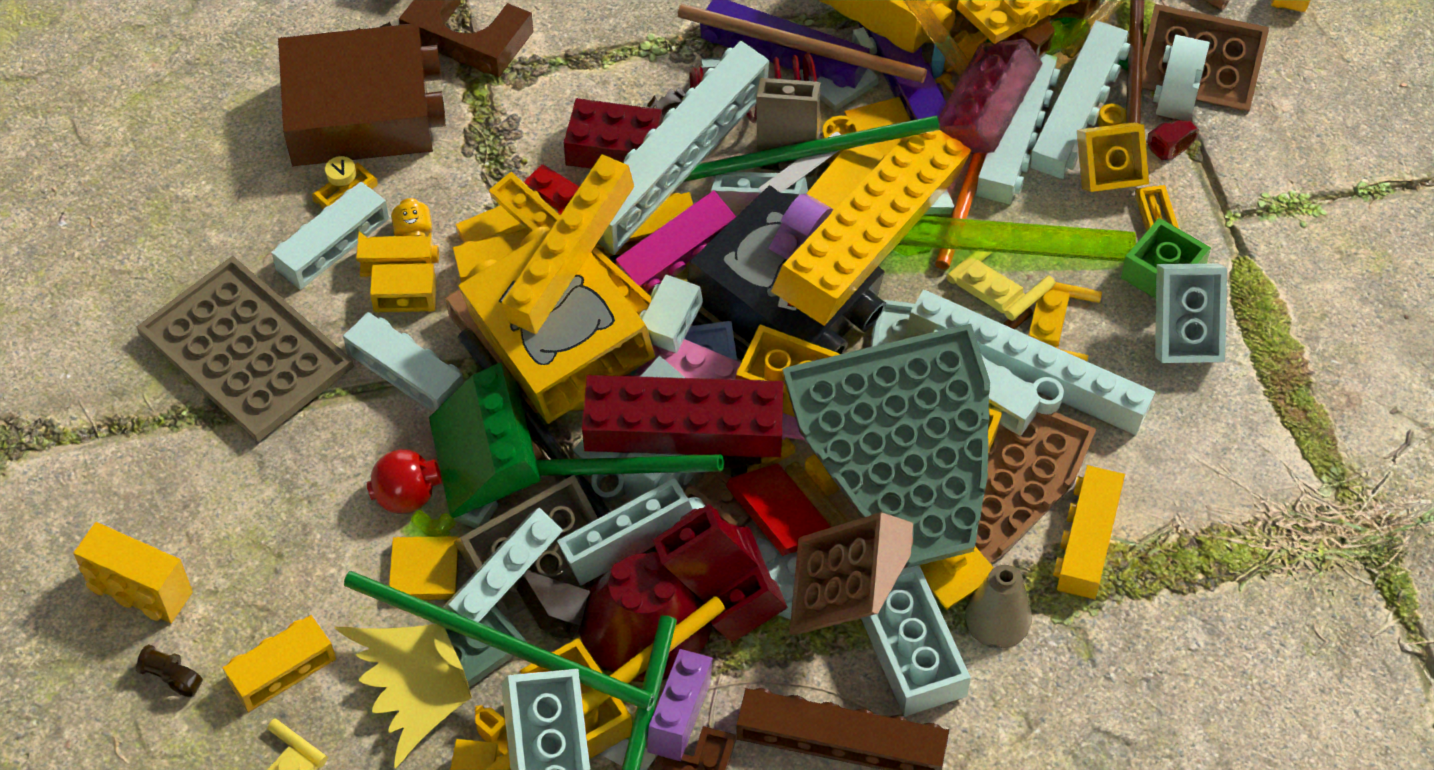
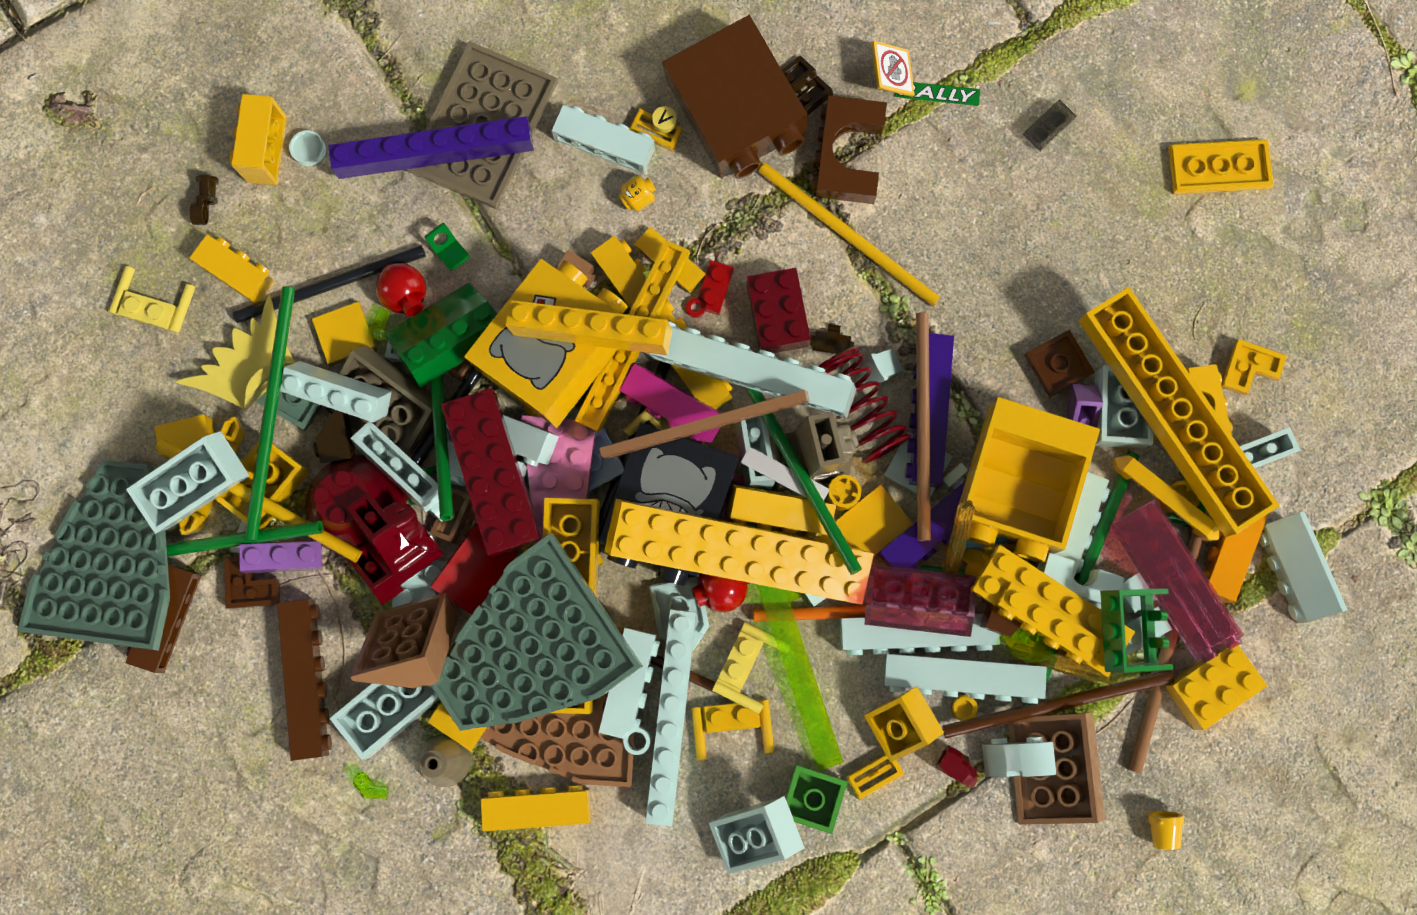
camera: 70 degrees right, 25 degrees up
(168, 536) = (307, 148): none -> light aqua piece
(249, 393) = (431, 147): none -> dark purple brick
(353, 563) = (333, 282): none -> black piece
(380, 425) = (450, 250): none -> green bracket
(394, 250) = (603, 195): yellow window -> none
(402, 361) = (506, 244): light aqua brick -> none
(403, 287) = (575, 214): yellow brick -> none
(556, 58) = (849, 234): none -> yellow piece
(671, 312) = (591, 425): light aqua brick -> none
(724, 189) = (705, 424): none -> medium nougat tile
(798, 224) = (699, 498): medium lavender brick -> none
(904, 276) = (719, 593): none -> red brick
(1004, 708) = (367, 788): none -> clear neon green arm

